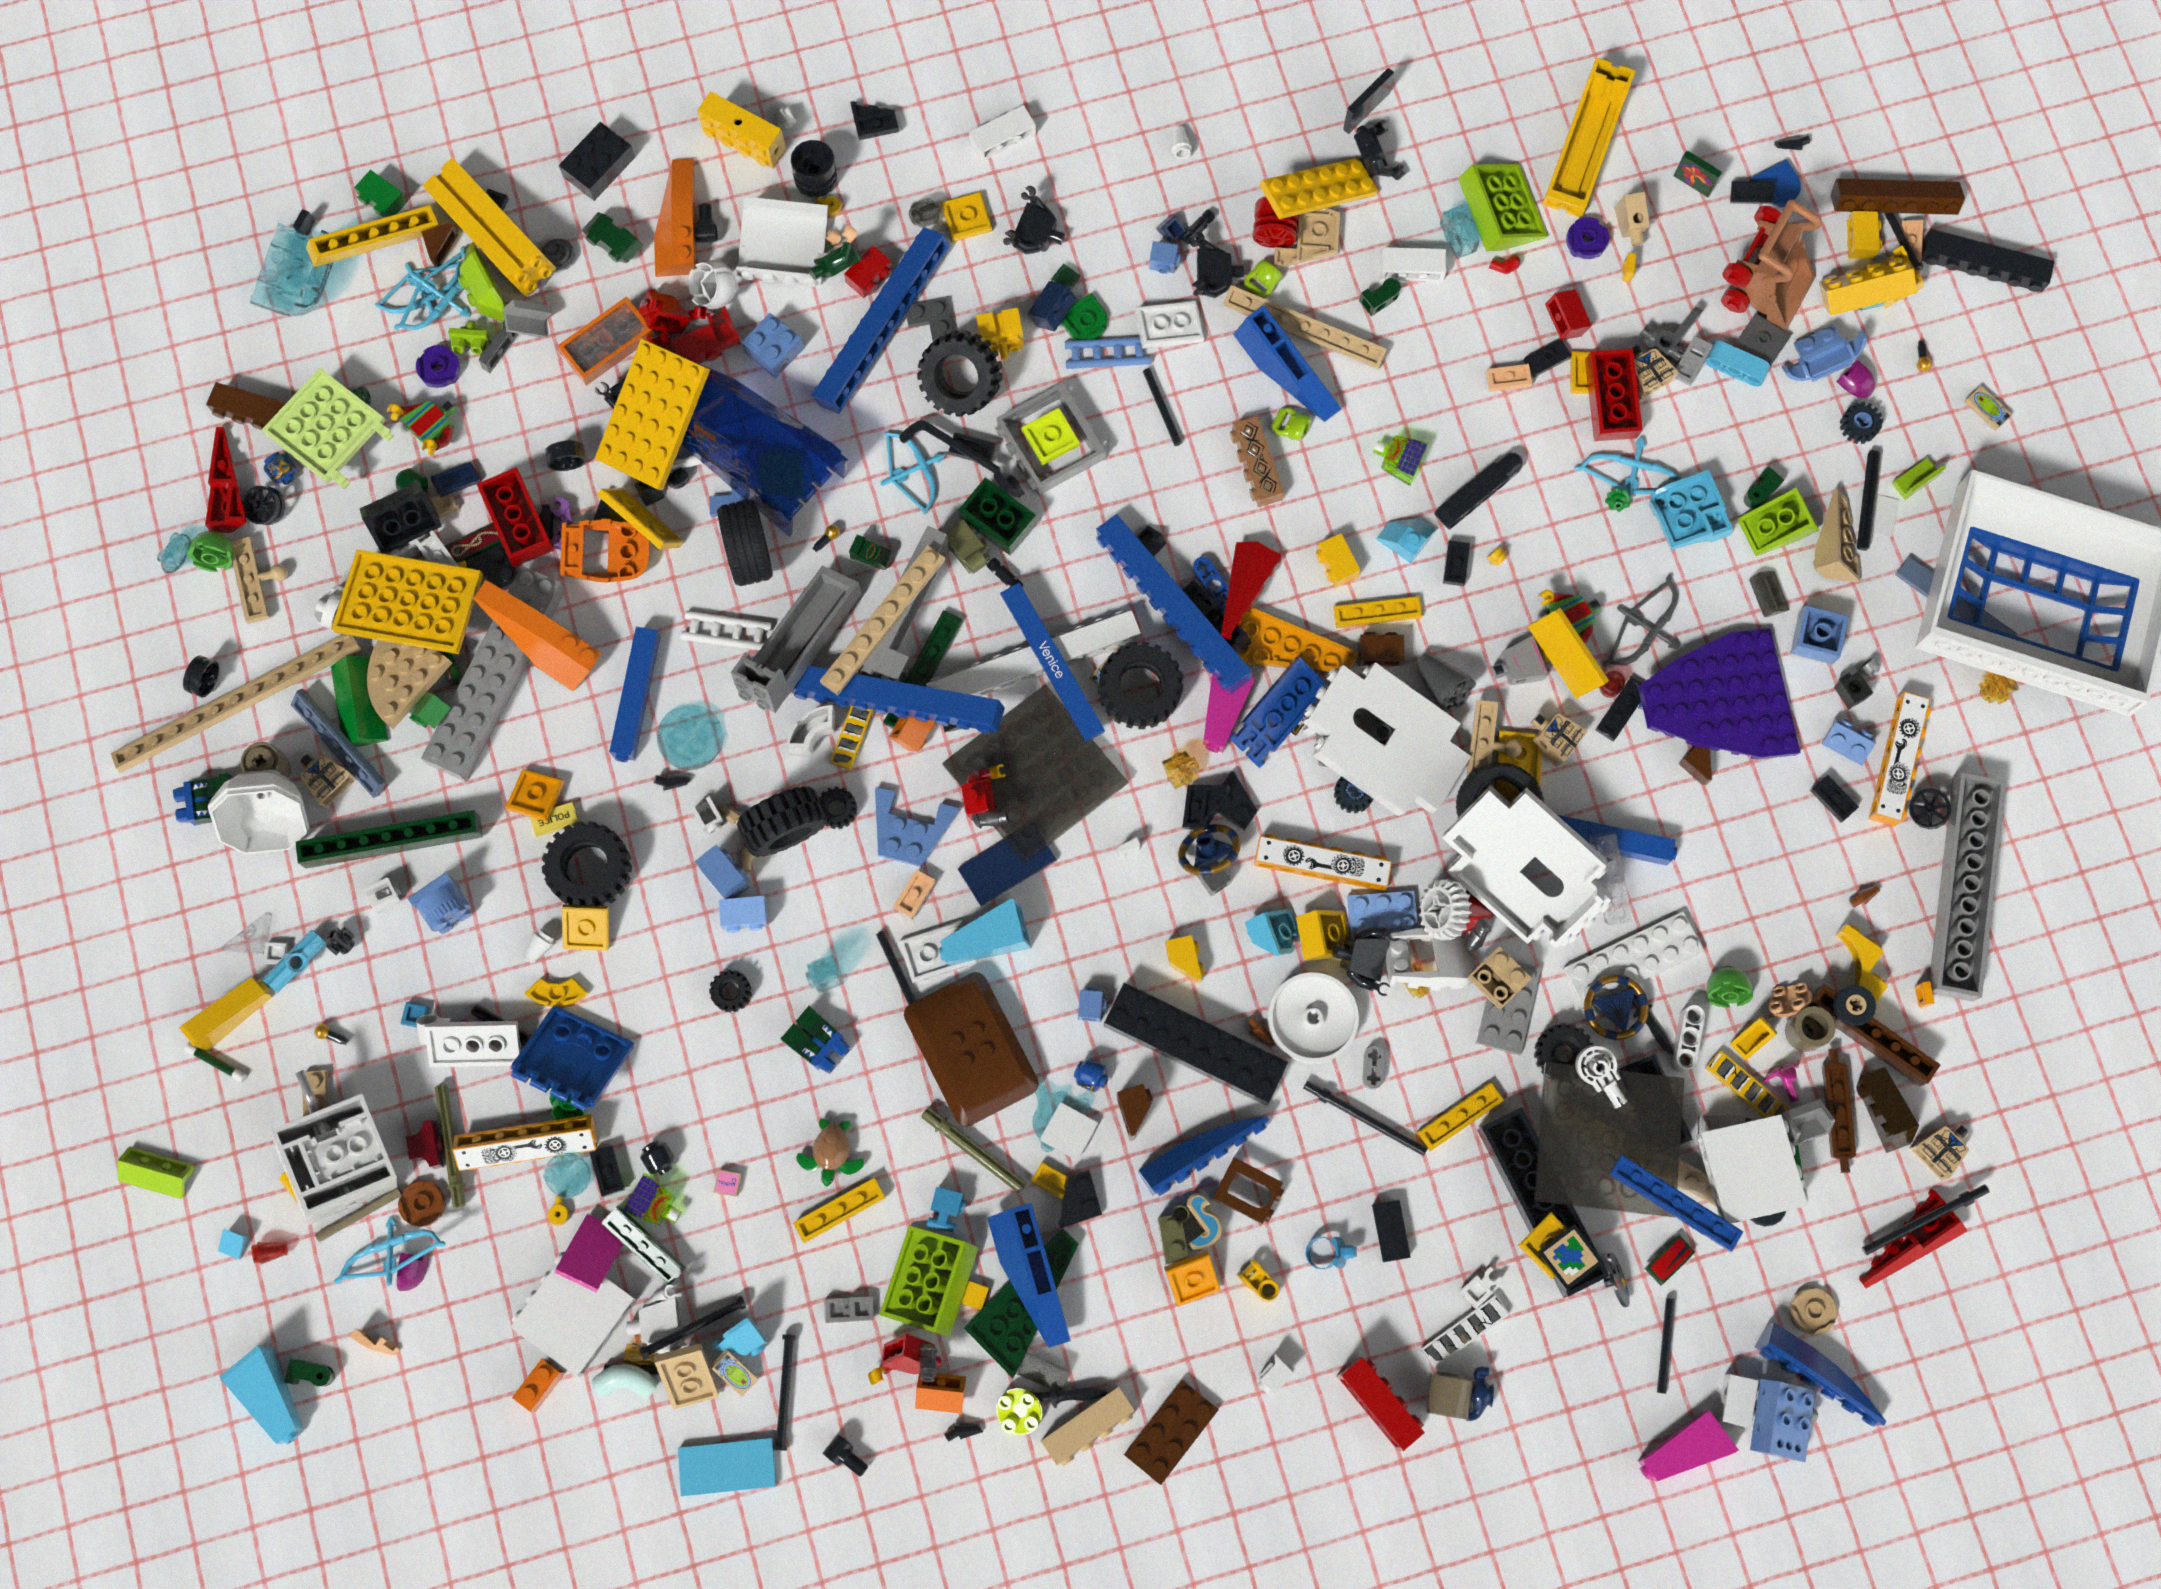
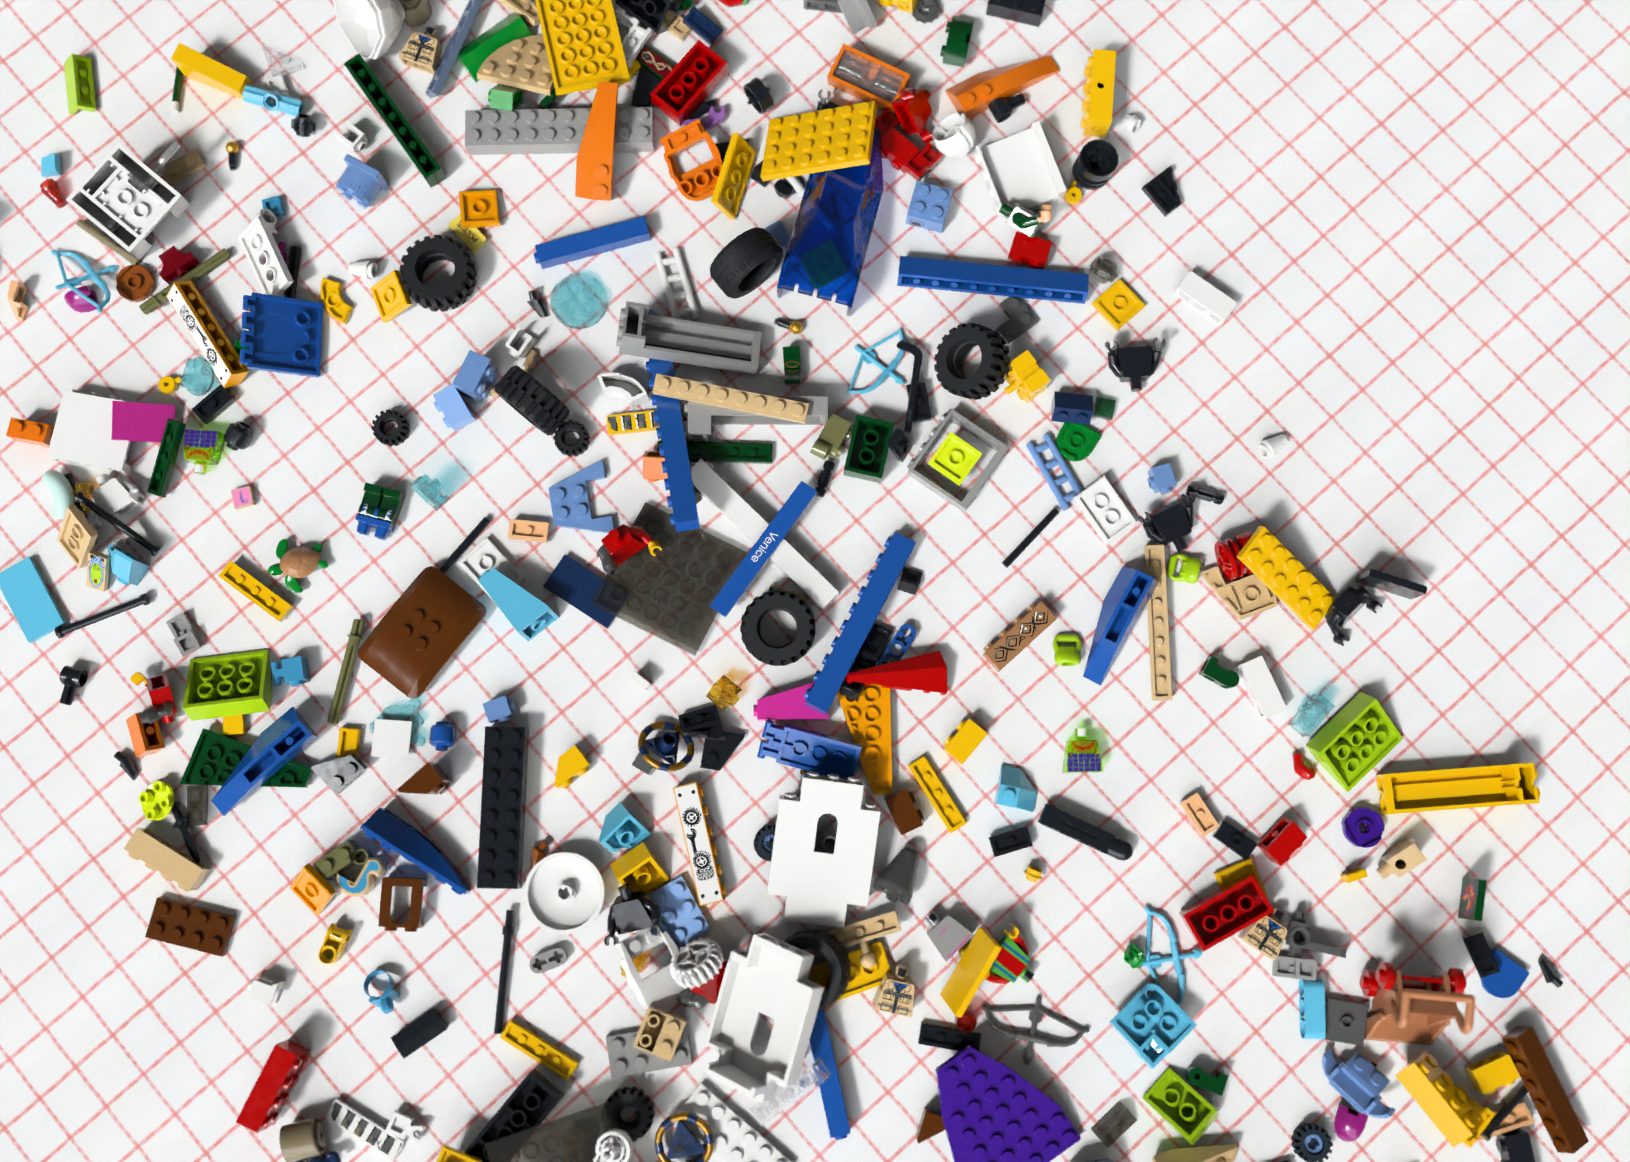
camera: 65 degrees right, 5 degrees up
(1171, 228) = (1192, 474): dark blue slope -> none

